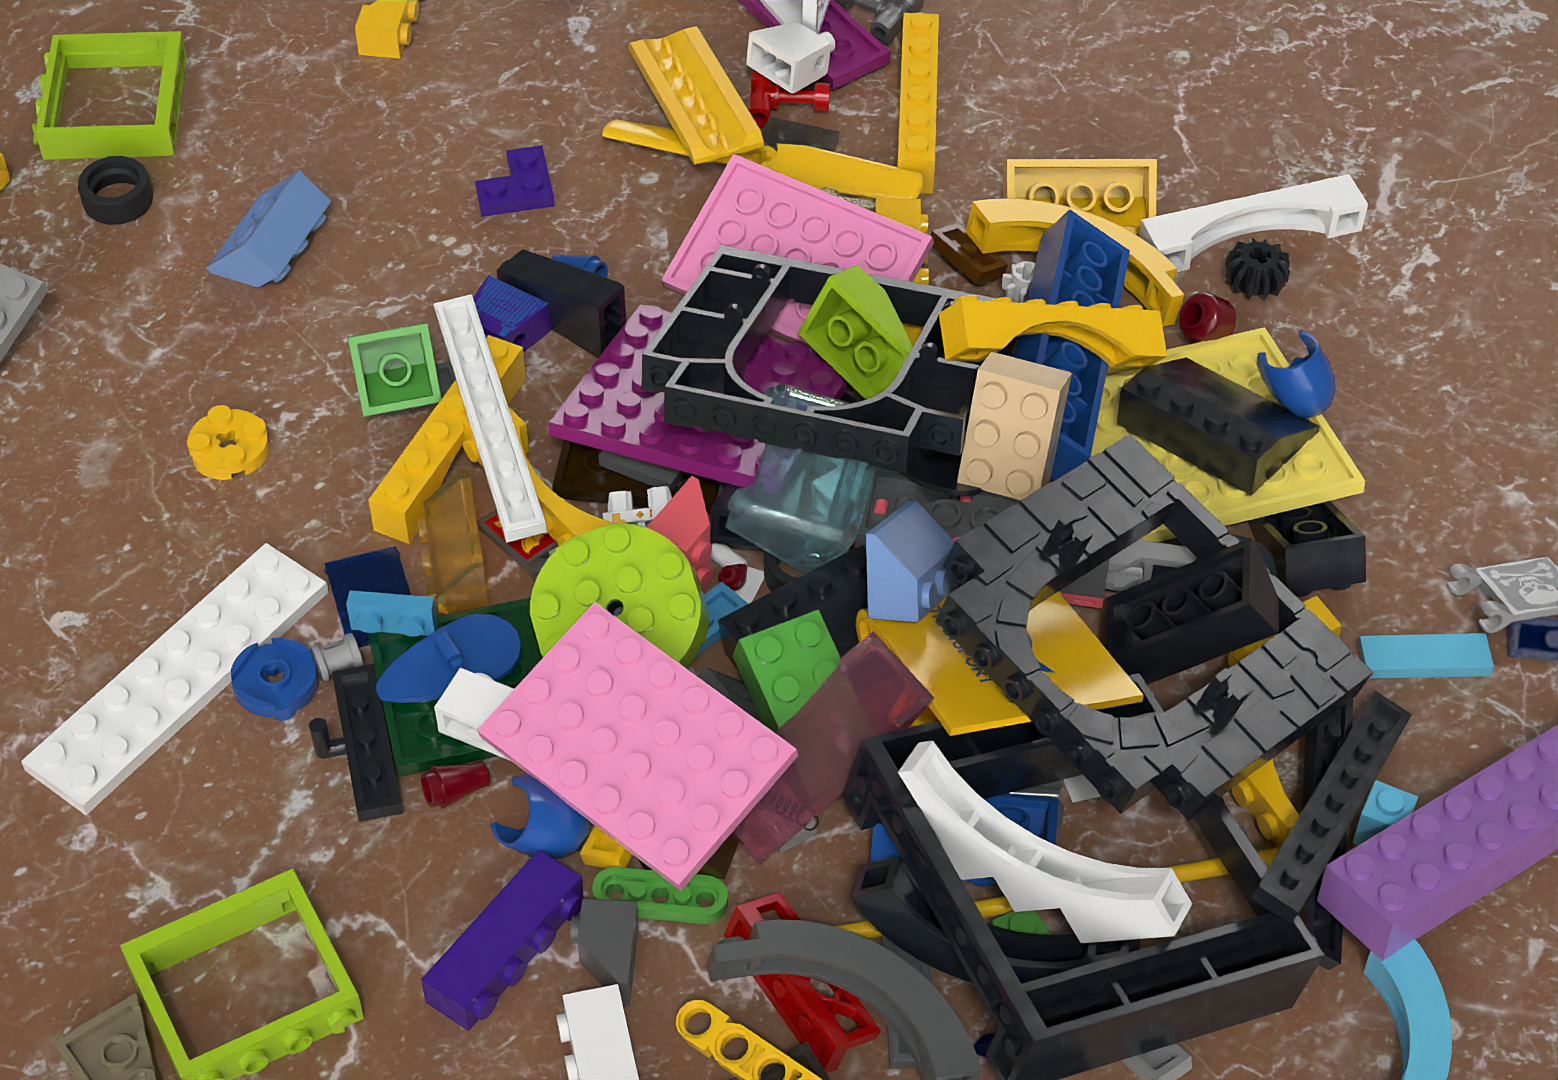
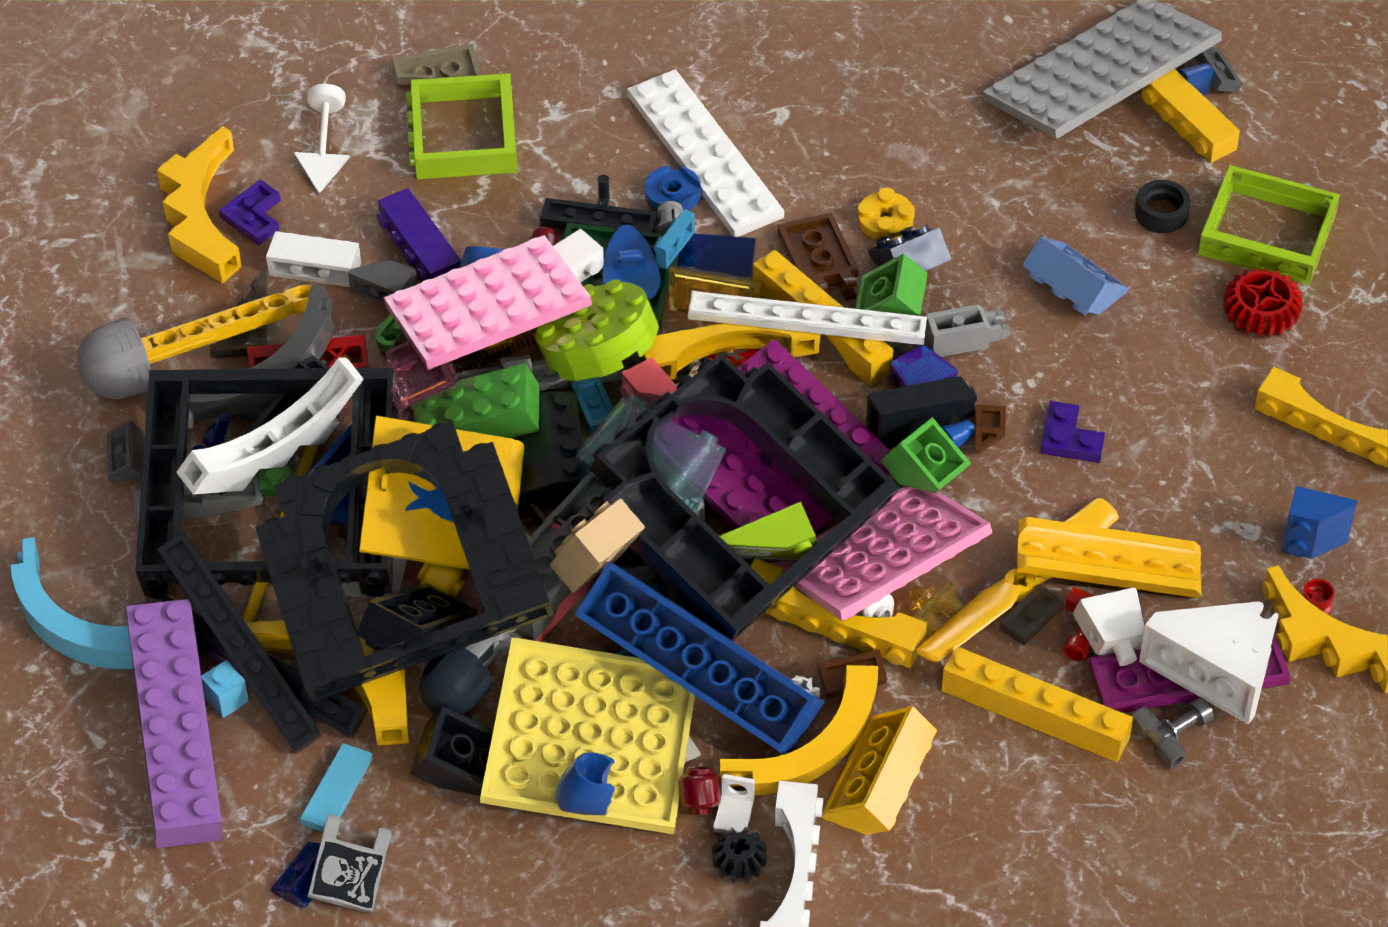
camera: 115 degrees right, 0 degrees up
(244, 72) = (1262, 302): none -> red gear
(295, 390) = (920, 244): none -> slope
(328, 483) = (821, 252): none -> reddish brown tile
(410, 292) = (964, 329): none -> light grey hinge
(548, 245) = (989, 426): none -> reddish brown slope
(645, 266) = (926, 459): none -> bright green slope
(907, 565) = (533, 464): medium blue slope -> none
(1117, 335) = (670, 671): yellow arch -> none
(1212, 422) = (585, 715): black slope -> none
(1217, 286) = (734, 805): none -> white bracket

